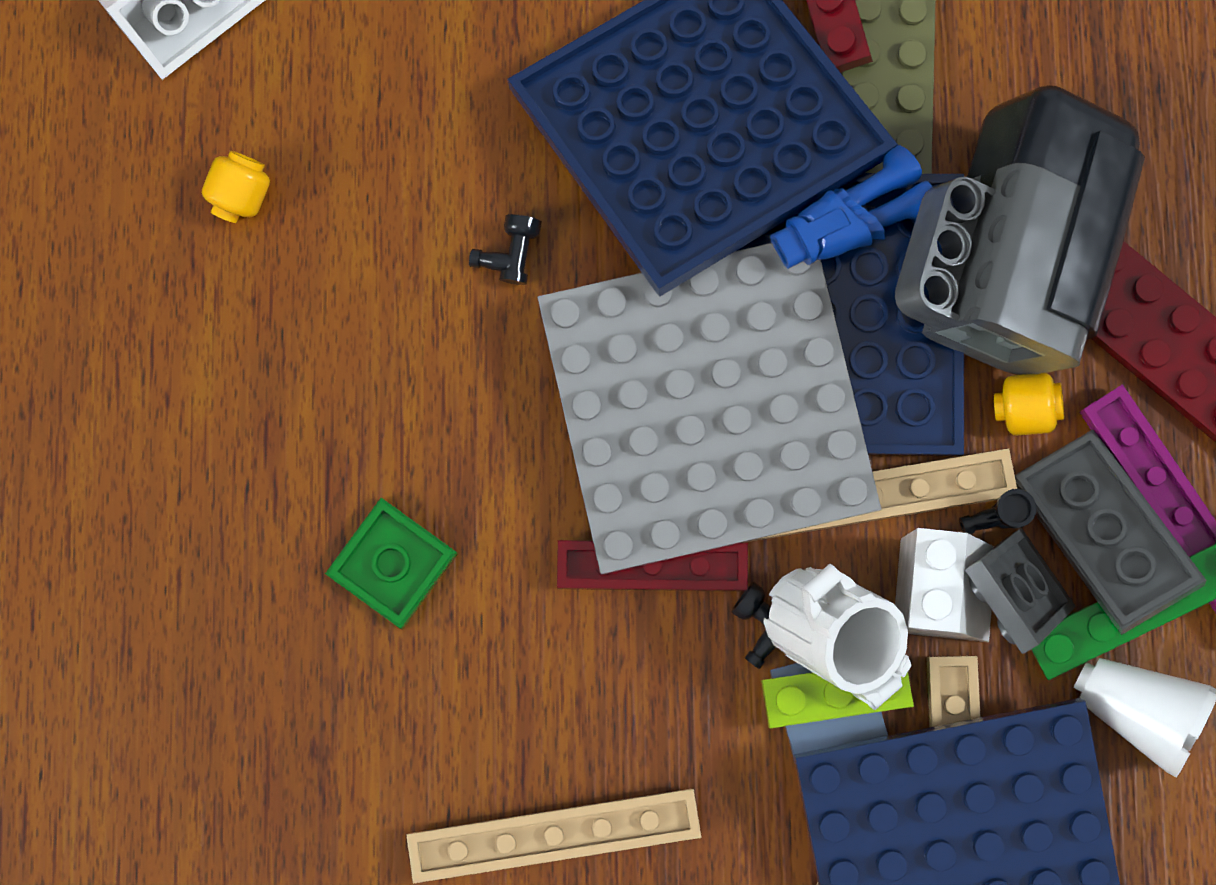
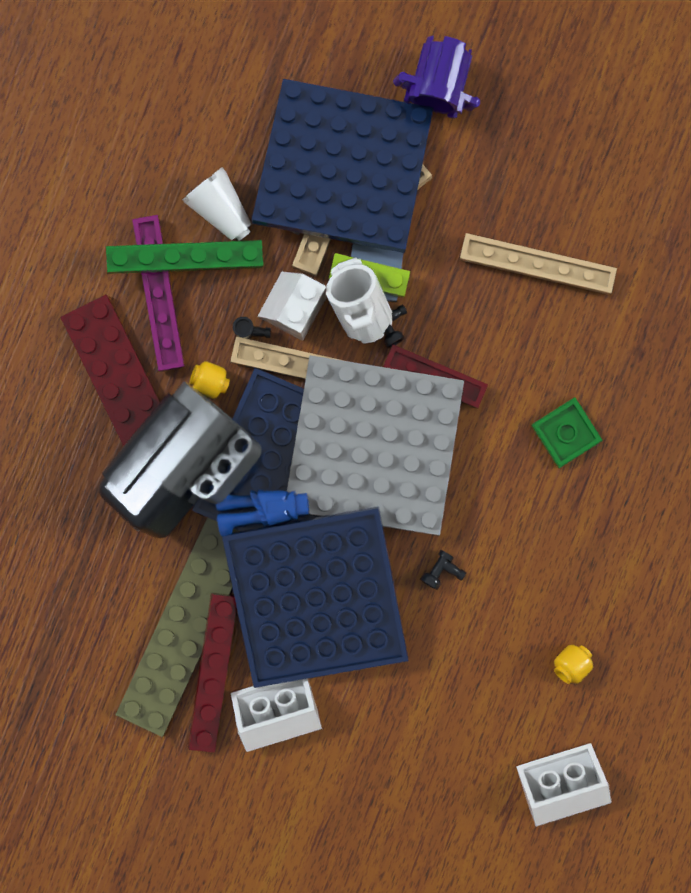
camera: 160 degrees left, 5 degrees up
(1020, 591) = (259, 285): dark grey plate -> none
(1109, 532) = (200, 299): dark grey tile -> none

